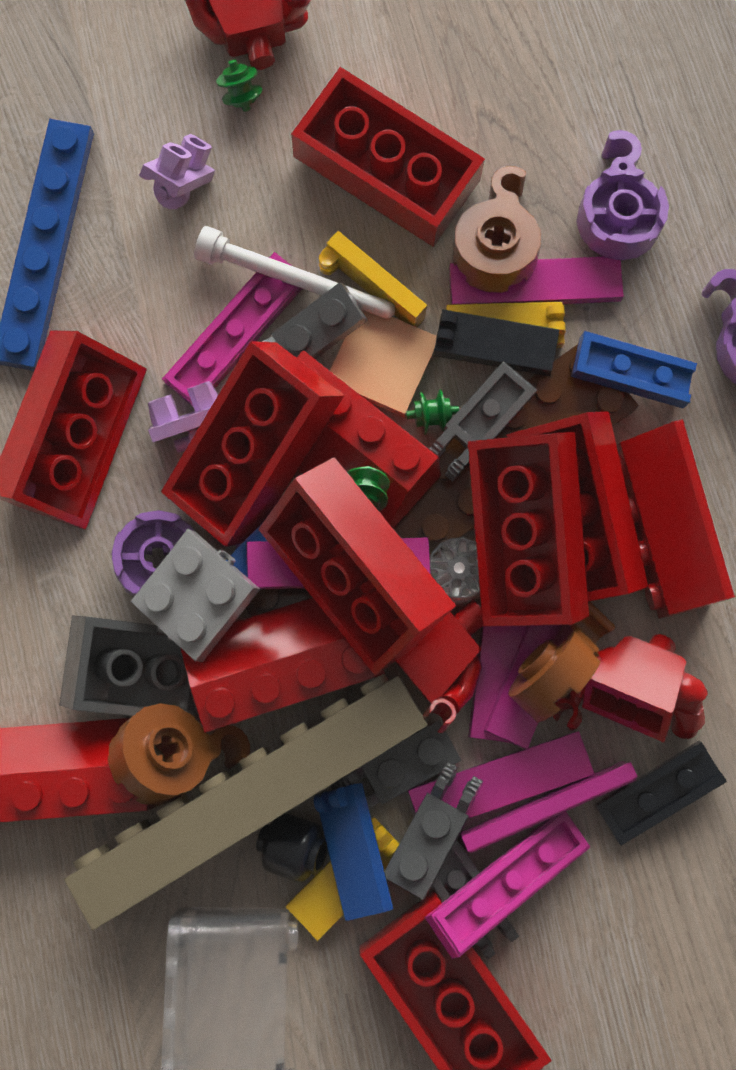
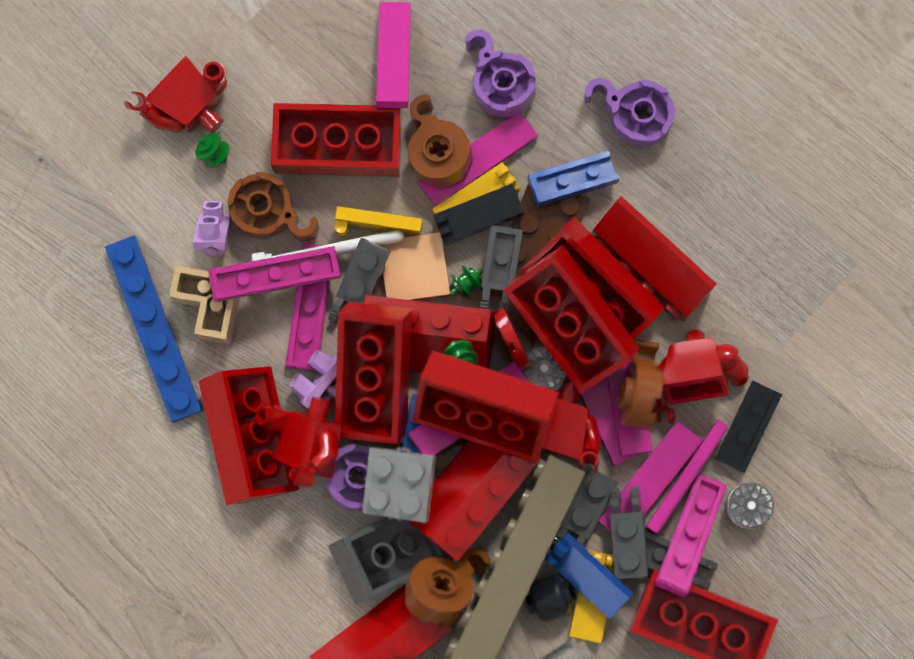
camera: 25 degrees left, 0 degrees up
(123, 477) = (306, 441): none -> red torso
(130, 249) = (214, 319): none -> tan brick
(212, 259) = (274, 274): none -> dark pink tile
(262, 201) = (277, 215): none -> dark orange piece
(442, 507) = (511, 338): none -> red tile
(513, 102) = (393, 55): none -> dark pink tile
(602, 890) = (749, 505): none -> wheel

